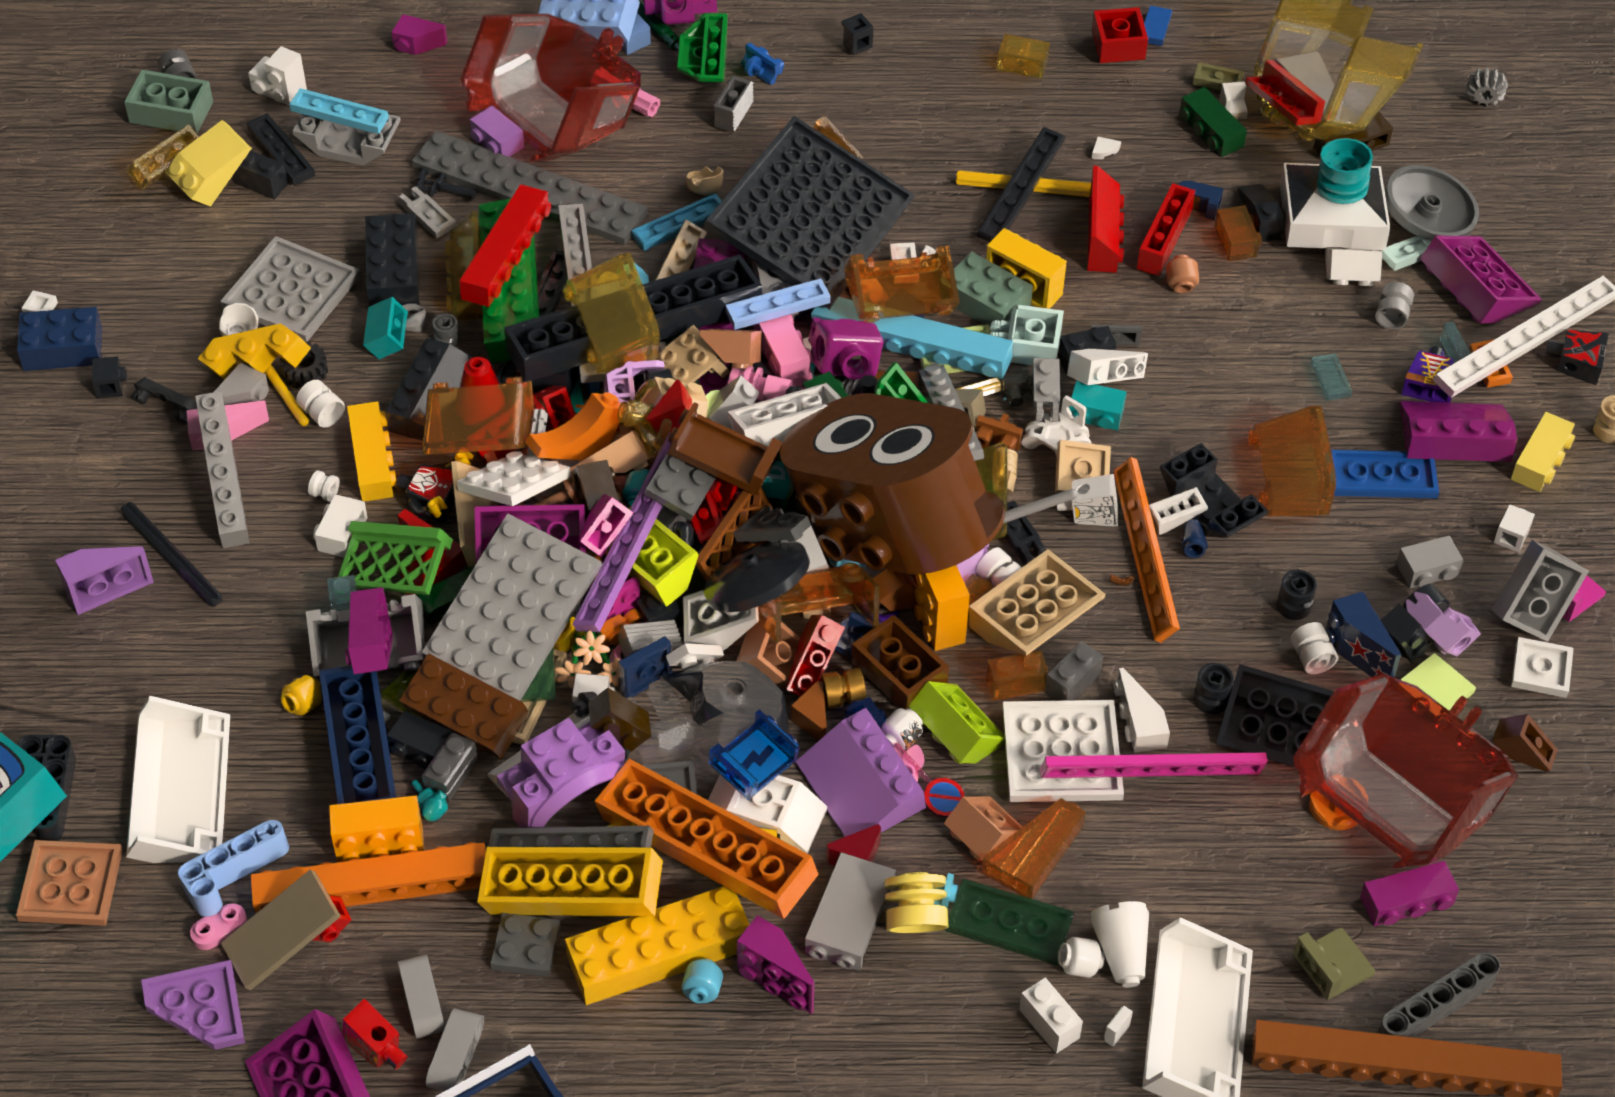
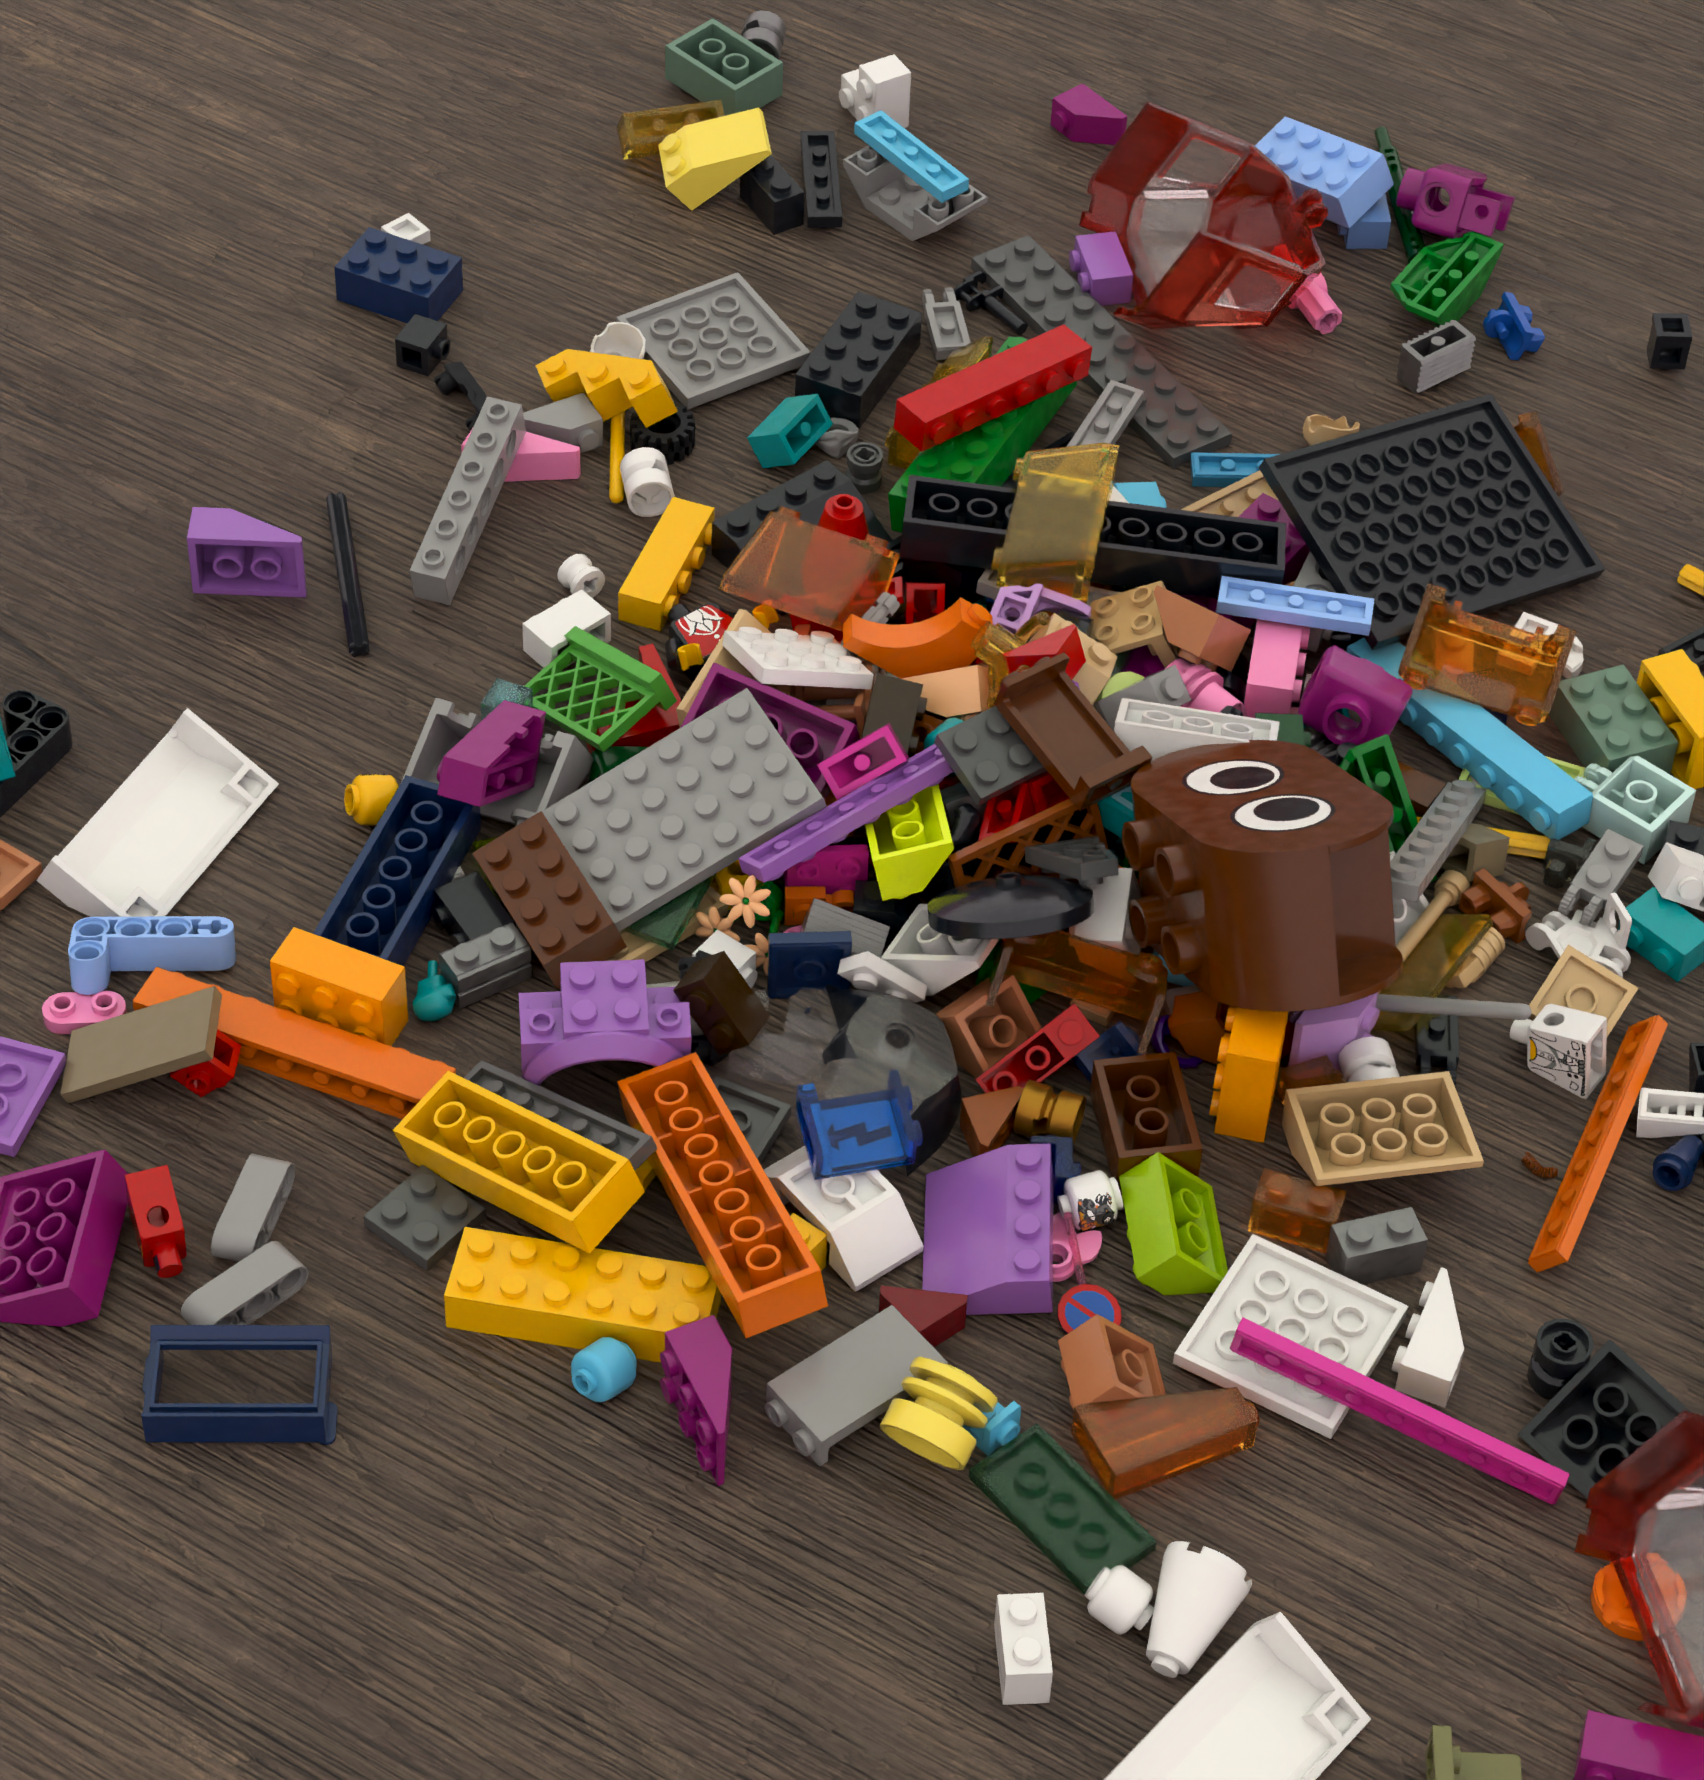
camera: 30 degrees right, 5 degrees down
(1118, 1025) = (1106, 1711): white tile -> none

